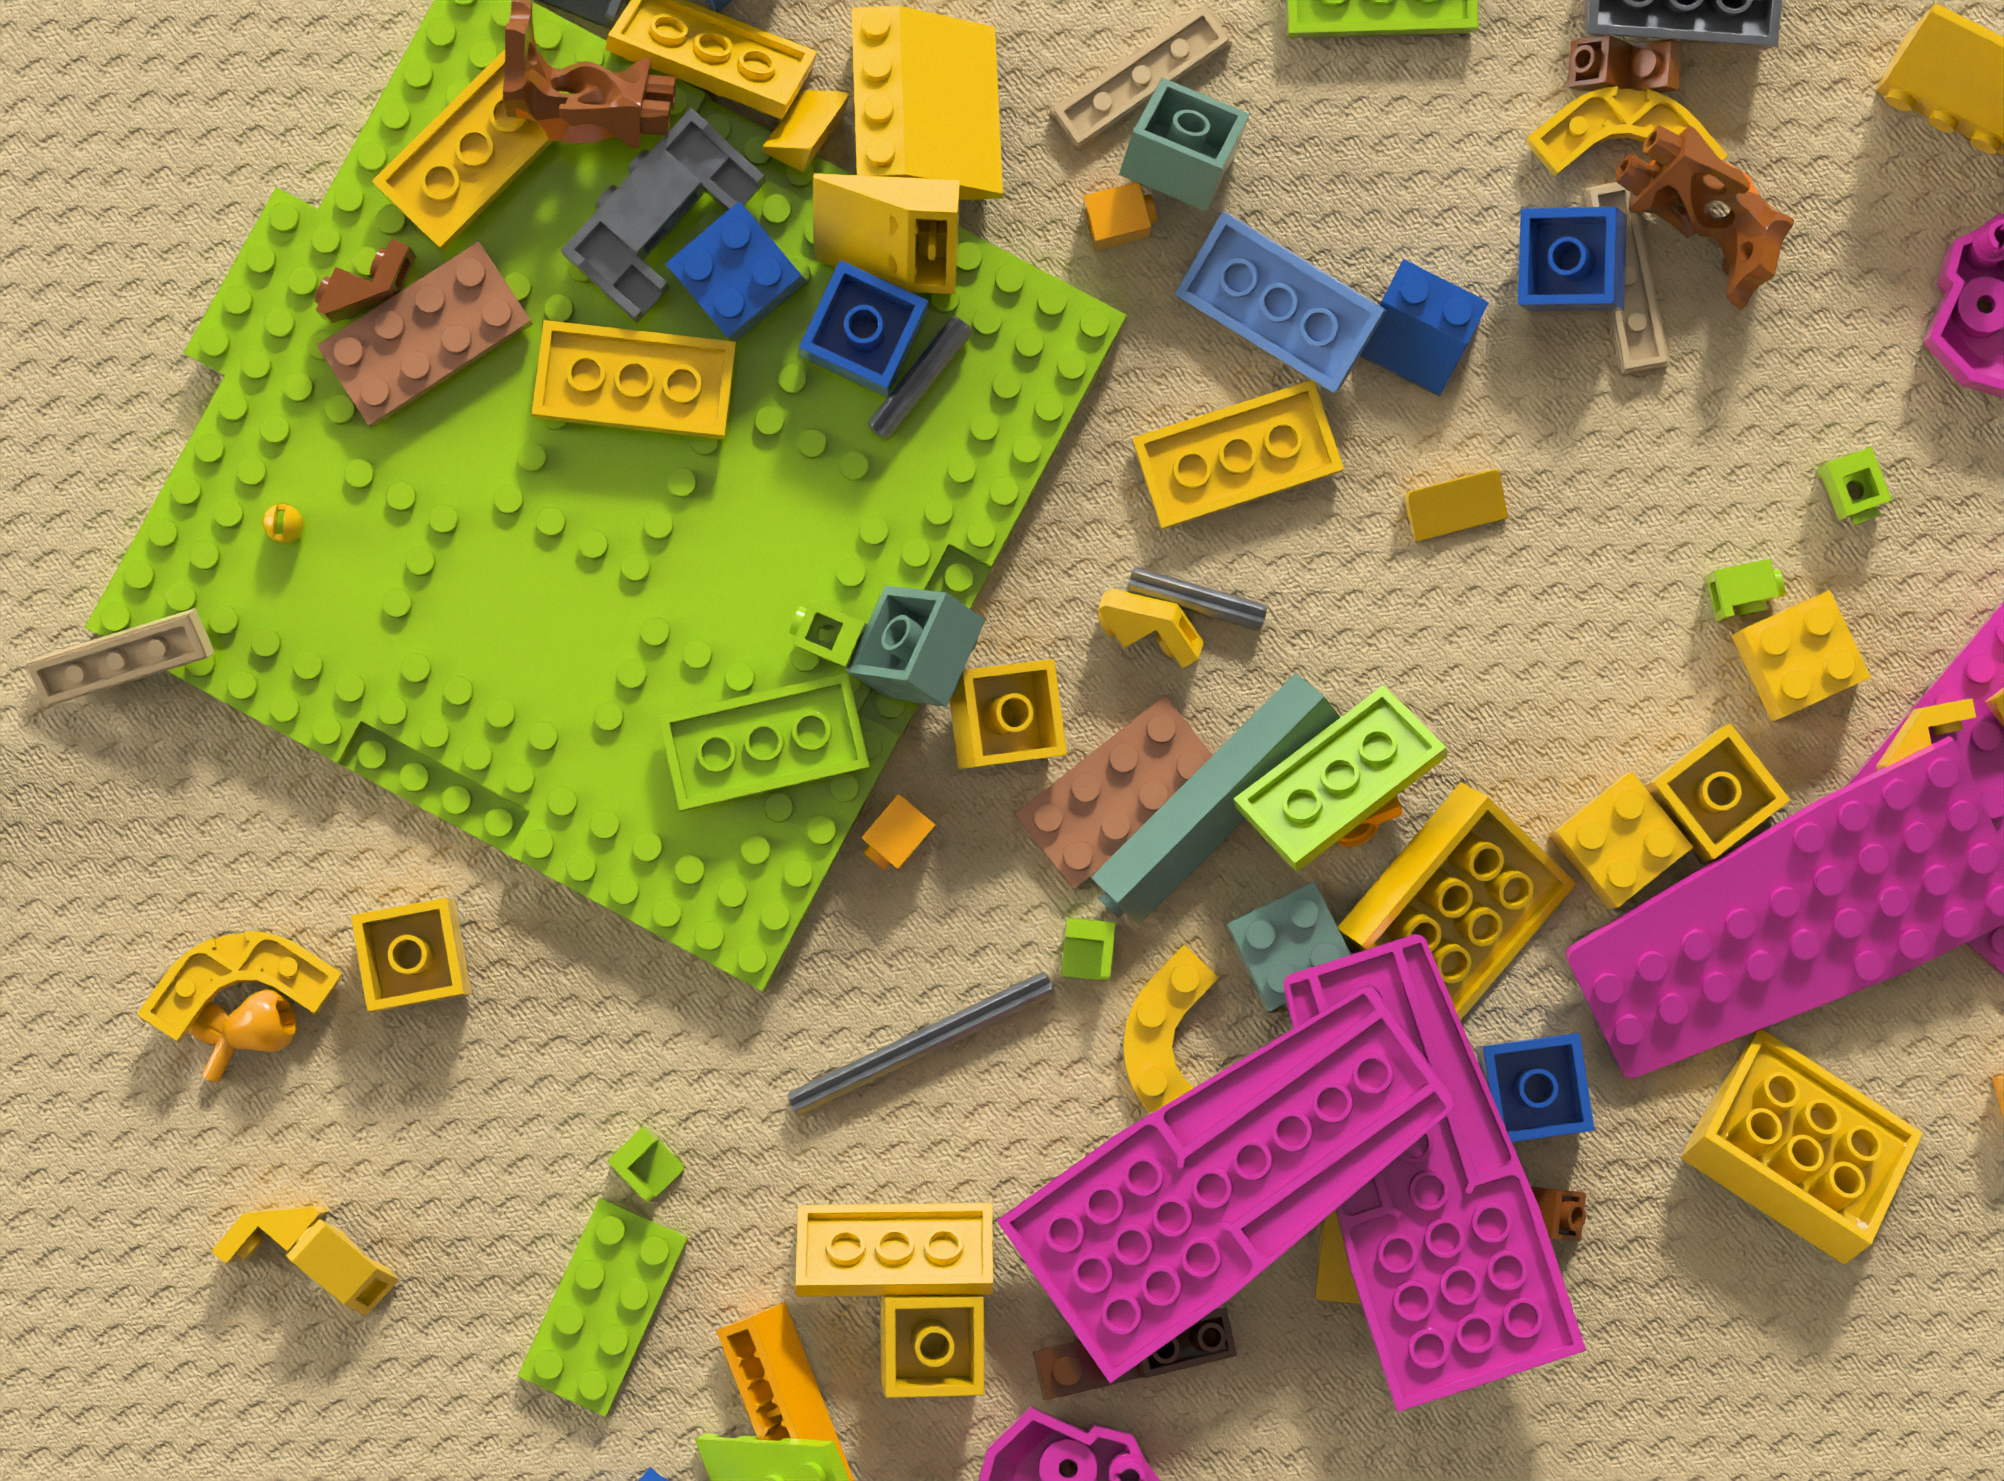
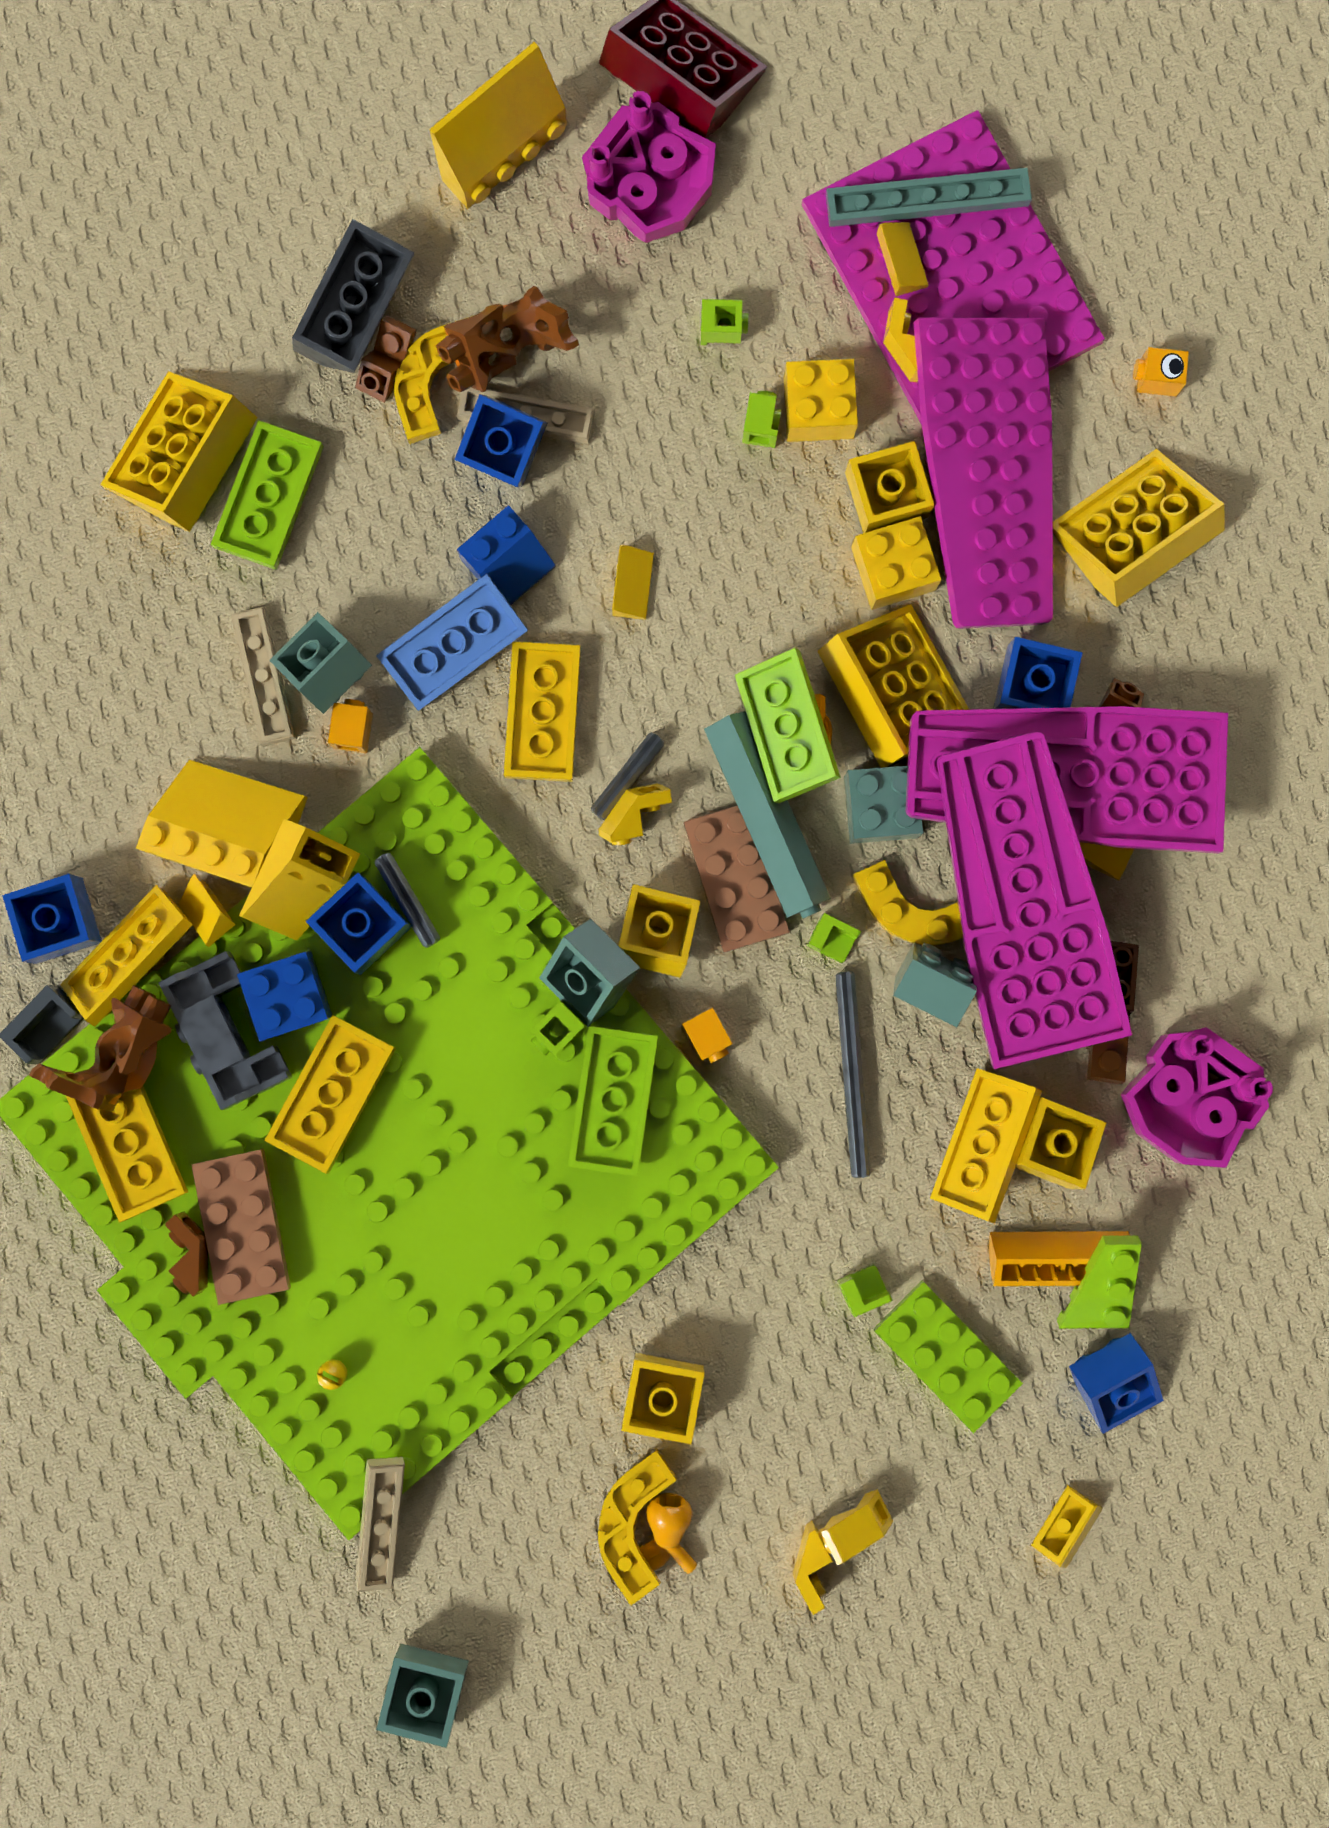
camera: 70 degrees left, 0 degrees up
(1077, 1100) = (935, 983): none -> sand green brick

